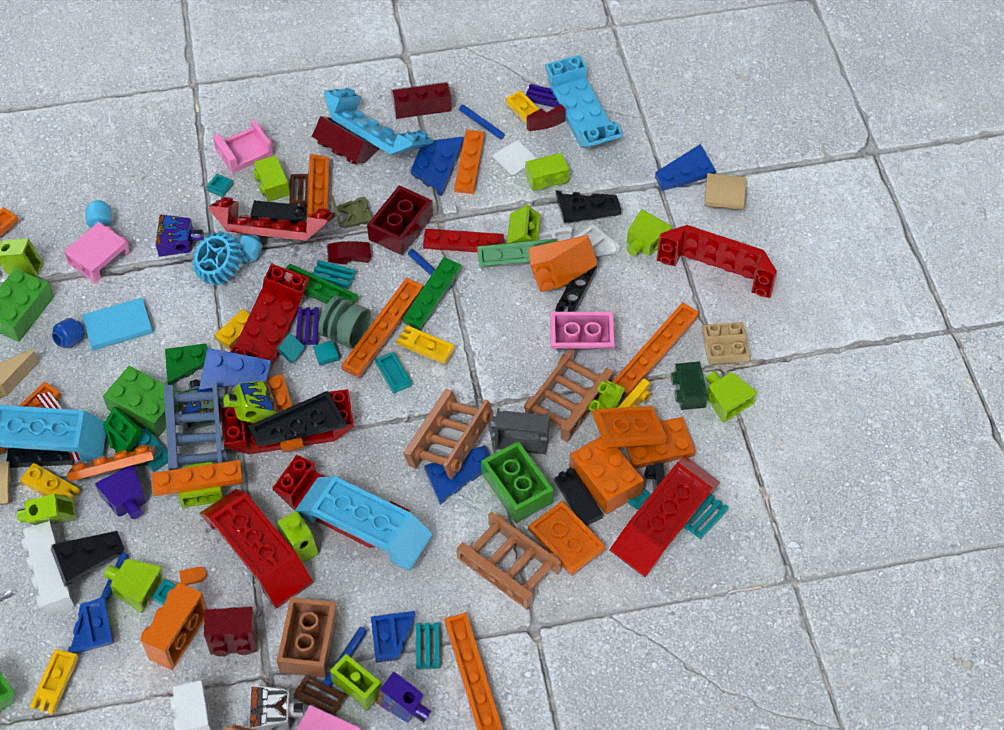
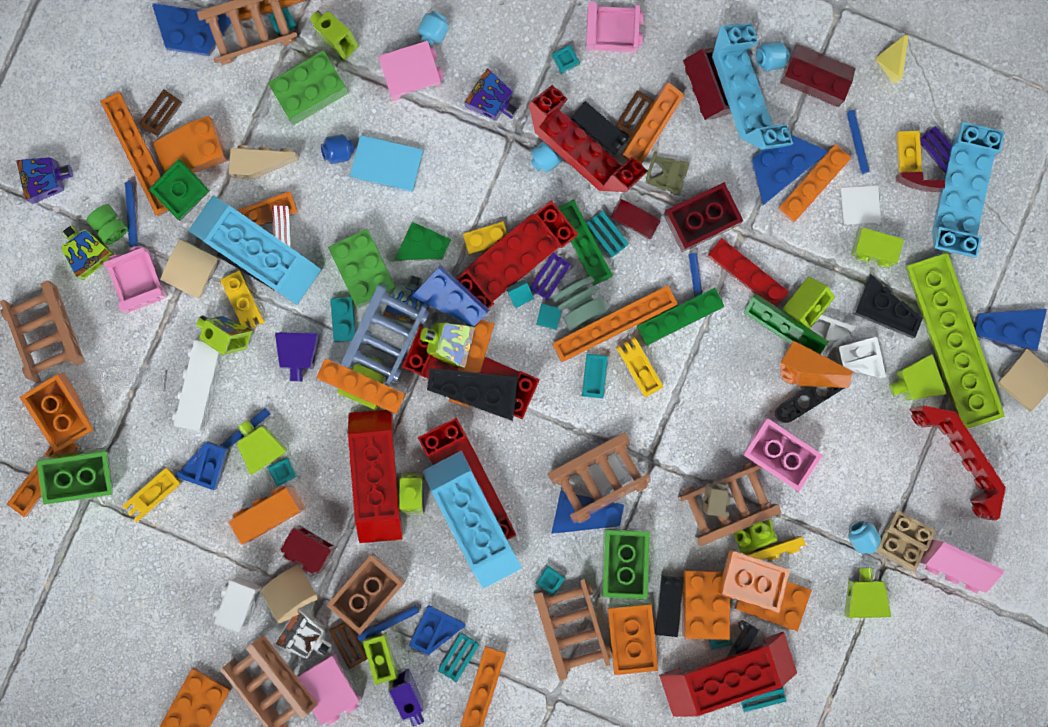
camera: 30 degrees right, 30 degrees up
(81, 555) = (232, 396): black wing -> none
(119, 460) = (301, 319): orange plate -> none
(121, 431) = (325, 292): green wing -> none
(192, 575) = (311, 466): orange piece -> none
(223, 259) = (514, 166): medium azure gear -> none
(235, 680) = (288, 593): none -> tan slope
(271, 178) = (616, 85): lime brick -> none
(377, 102) = (772, 56): none -> medium azure head
(463, 534) = (550, 580): none -> teal tile
(469, 62) = (893, 59): none -> light yellow slope
(527, 428) = (661, 519): dark grey window -> none
(554, 388) = (716, 499): none -> dark tan brick
(648, 193) = (954, 341): none -> lime plate
(656, 348) = (837, 507): orange plate -> none
(690, 385) = (839, 565): clear green brick -> none
(692, 353) = (864, 537): none -> medium azure head
(779, 327) = (960, 566): none -> bright pink slope

